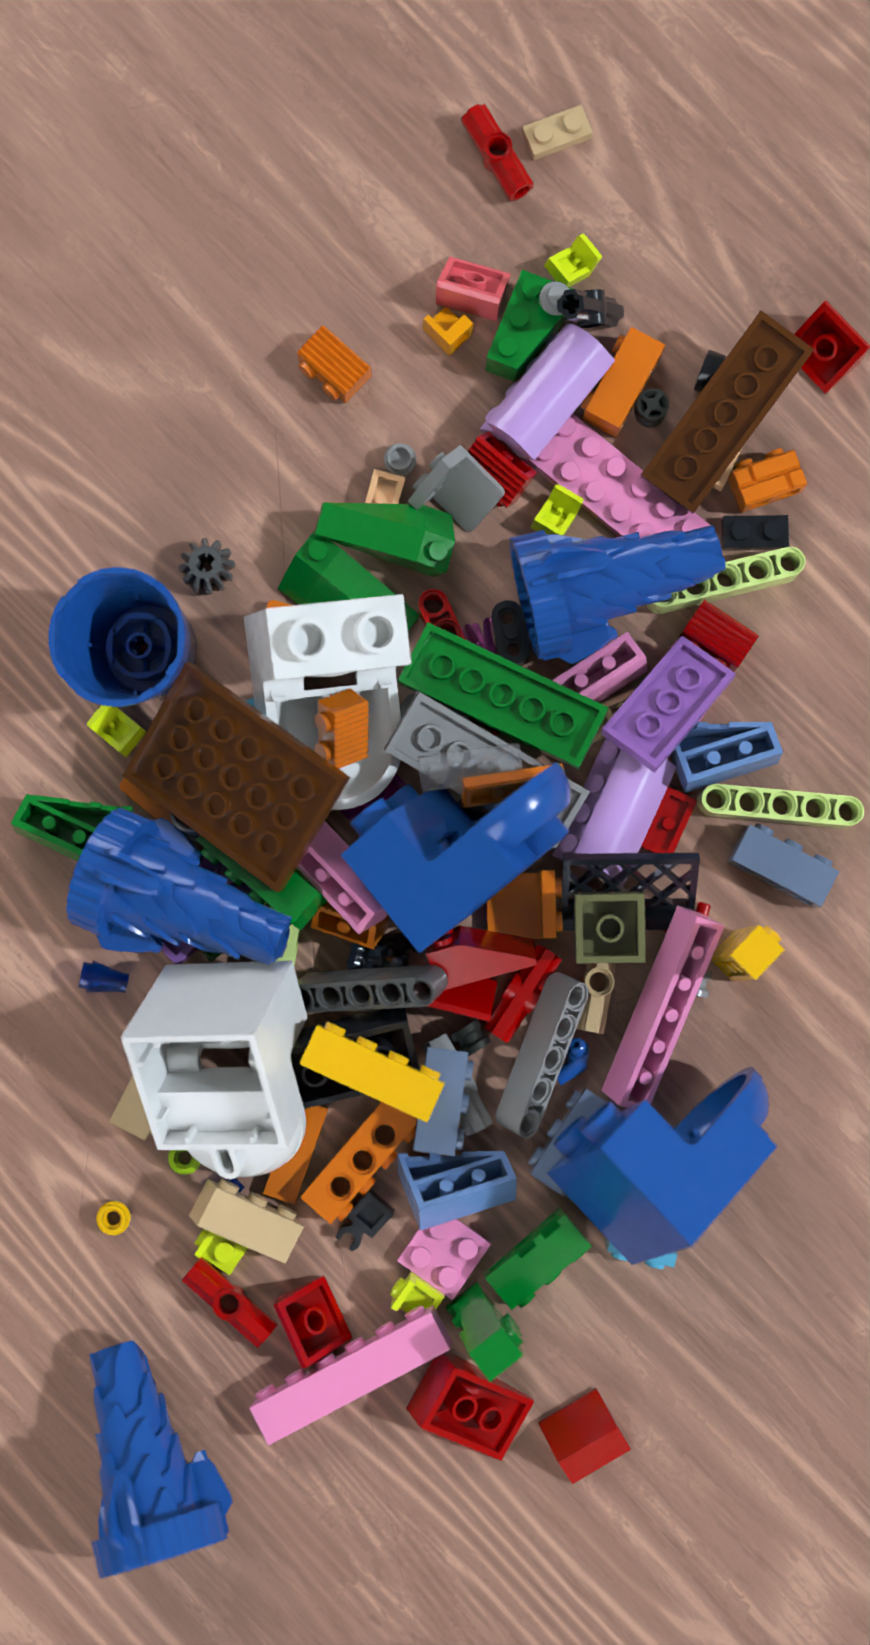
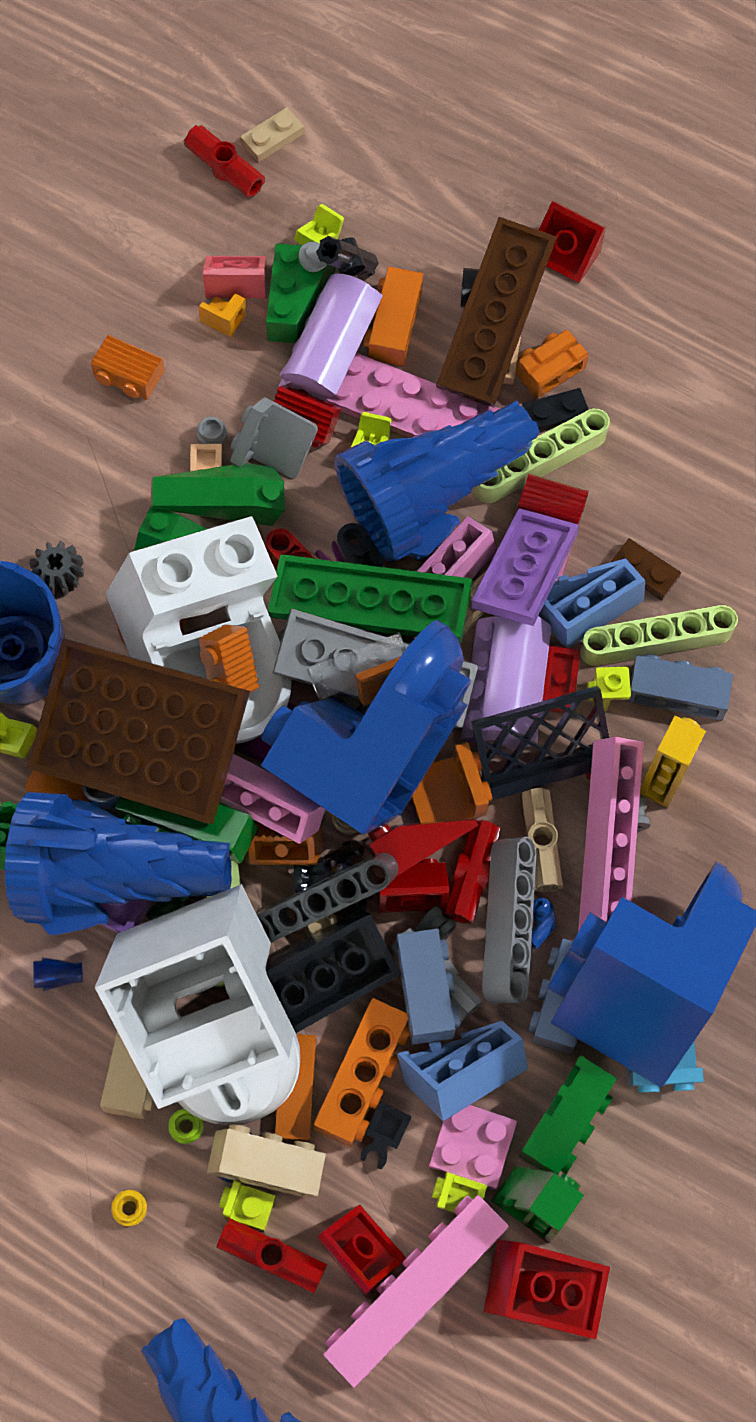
camera: 15 degrees left, 15 degrees down
(371, 1072) = (350, 966): yellow brick -> none
(584, 1436) = (672, 1288): red slope -> none
(609, 927) = (535, 775): olive brick -> none
(653, 400) = (422, 325): pearl dark grey wheel -> none
(714, 847) = (613, 684): none -> neon yellow bracket
(792, 730) = (657, 573): none -> reddish brown plate

